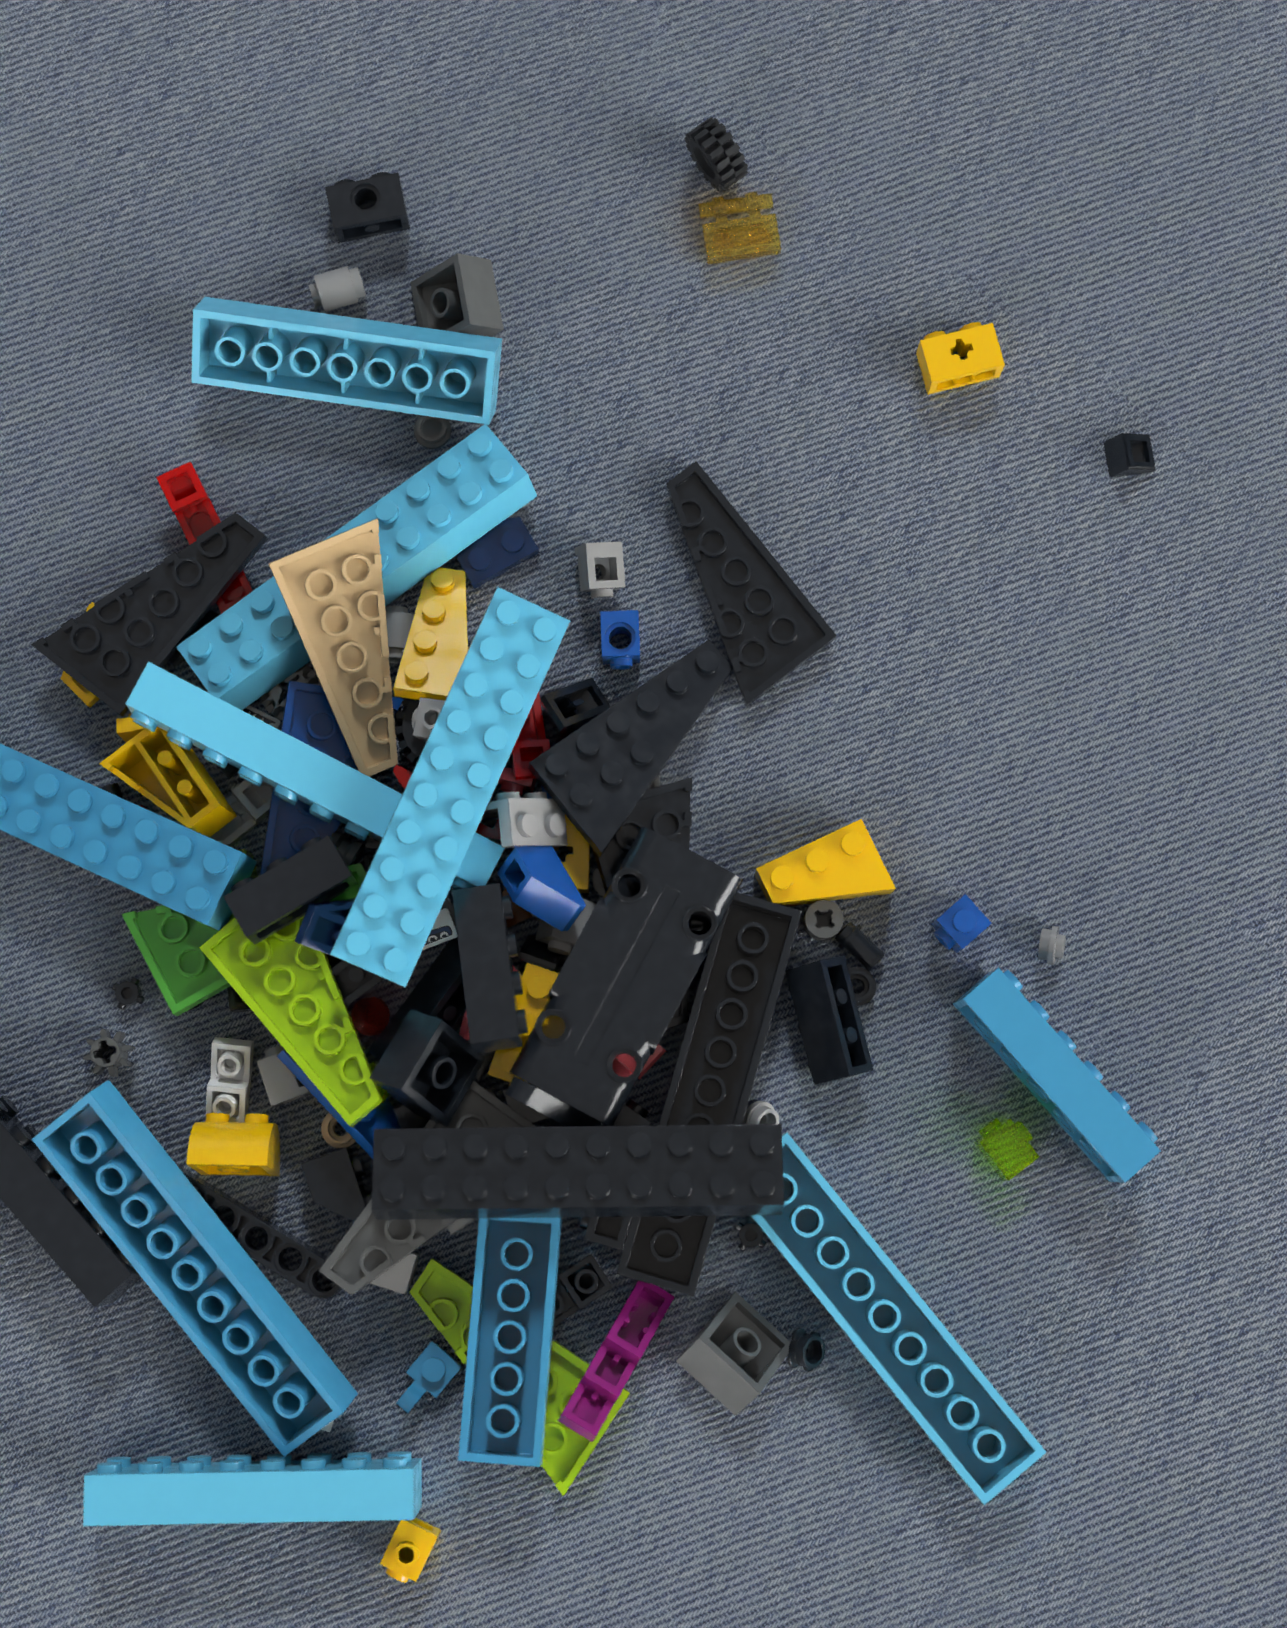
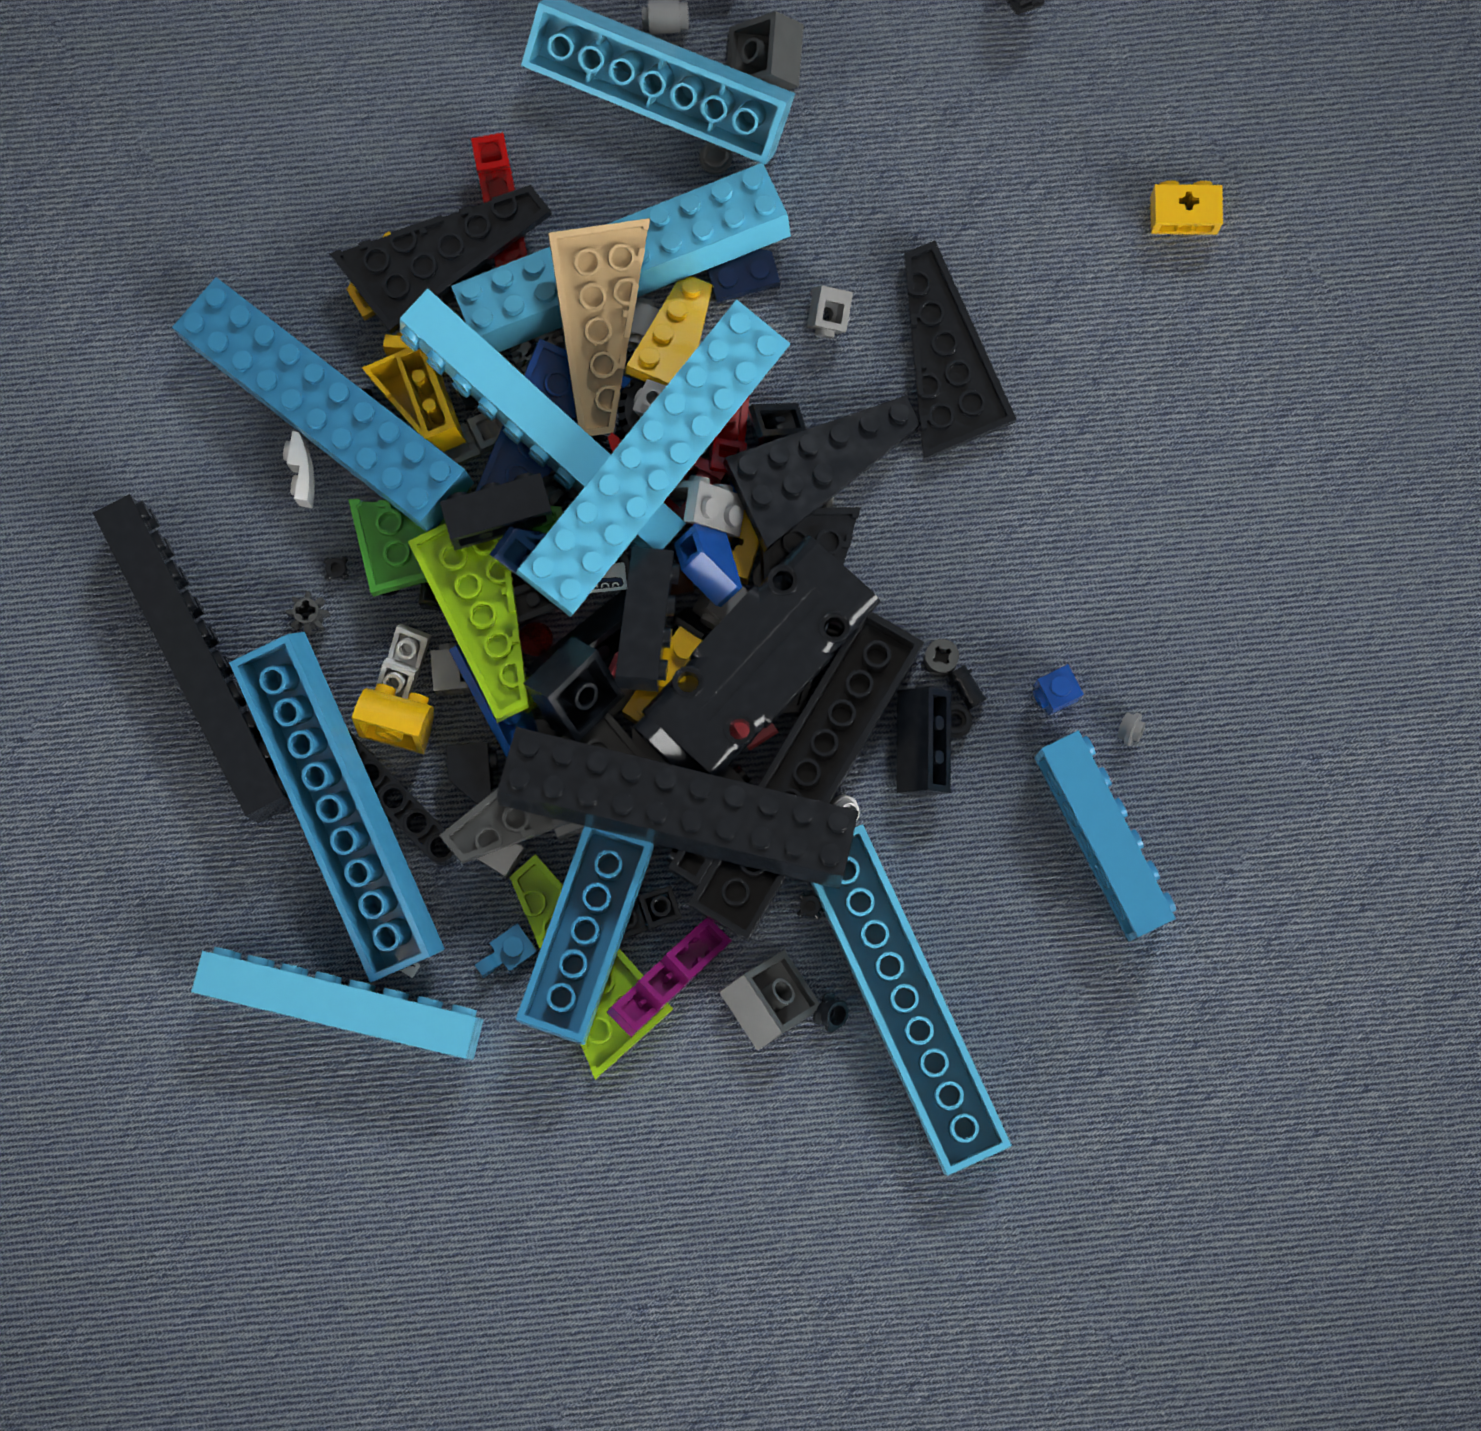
camera: 15 degrees right, 0 degrees up
(55, 881) = (299, 461): none -> white slope
(330, 1135) = (475, 729): tan plate -> none
(409, 1549) = (454, 1089): yellow brick -> none
(620, 623) = (835, 362): blue brick -> none
(741, 237) = (1025, 58): clear yellow plate -> none
(827, 869) = (960, 613): yellow wedge -> none
(1006, 1147) = (1047, 887): clear neon green brick -> none
(1129, 455) = (1312, 329): black slope -> none

